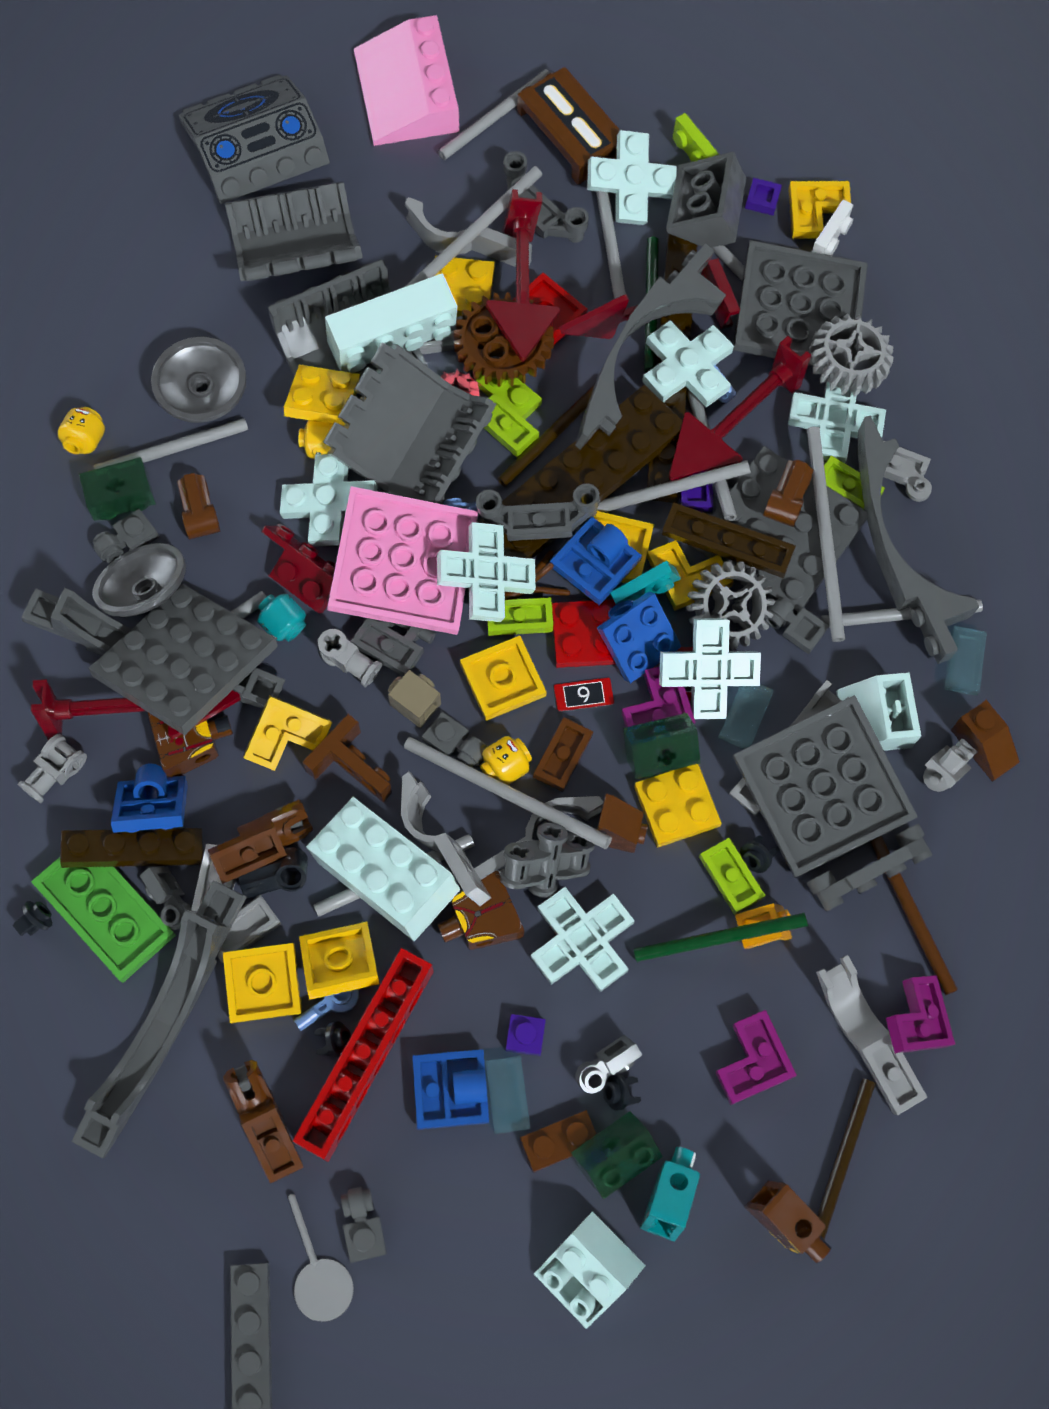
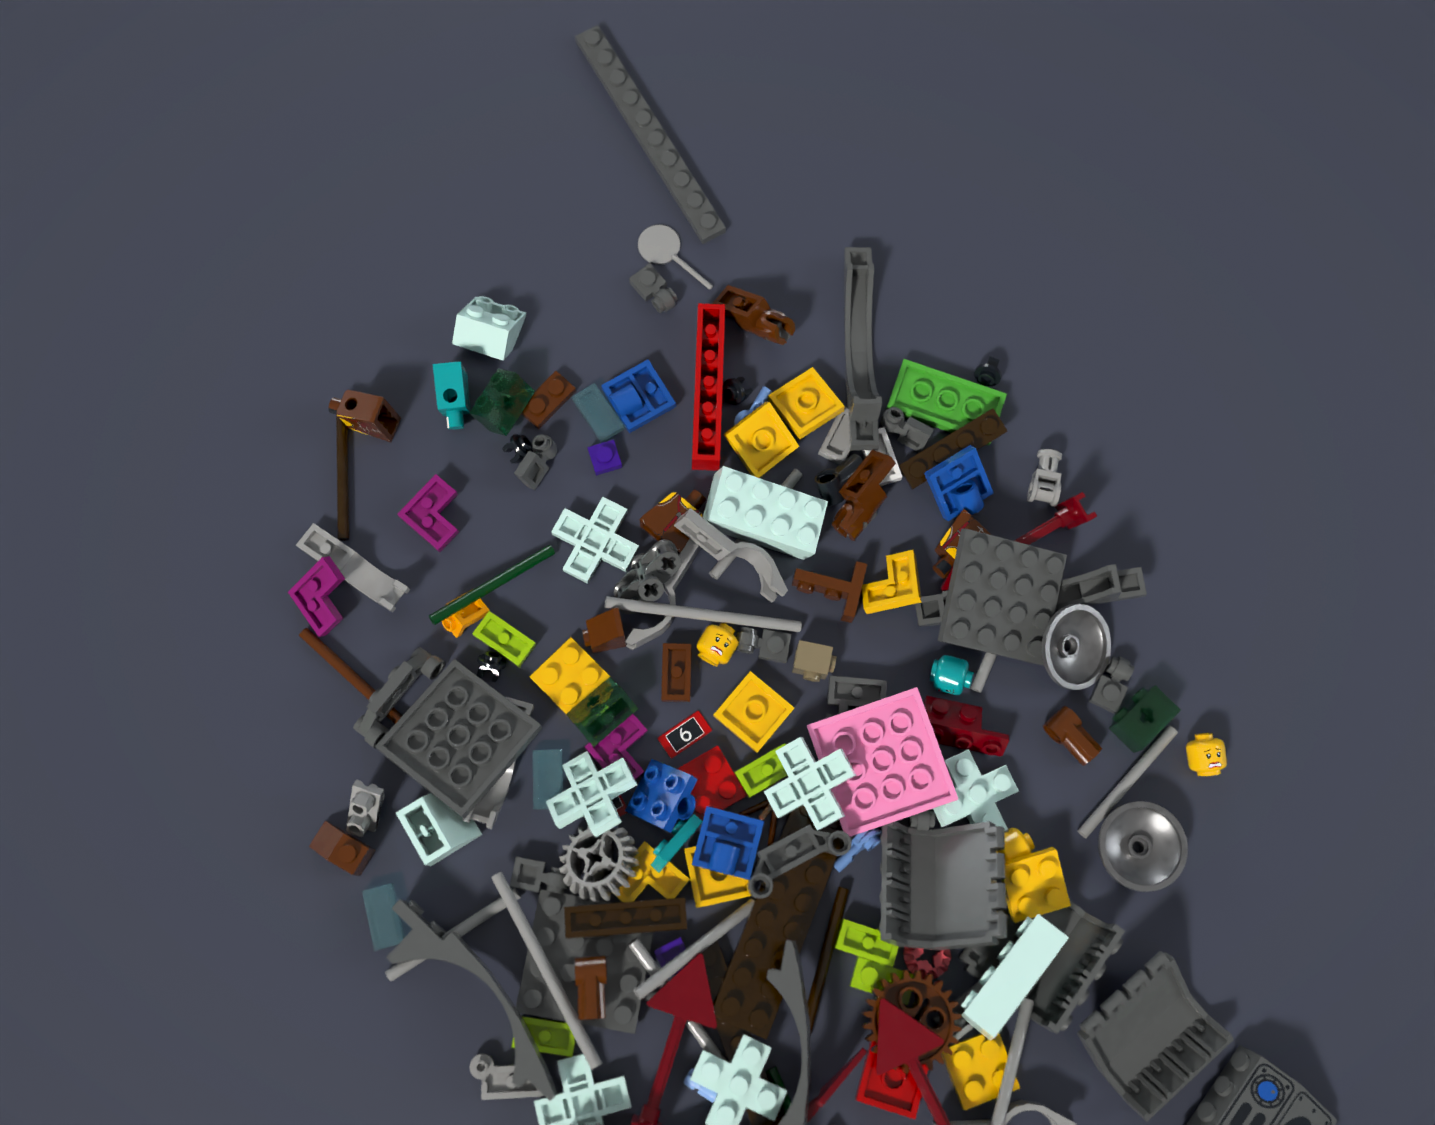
camera: 150 degrees right, 5 degrees up
(347, 657) = (882, 668): light grey connector -> none

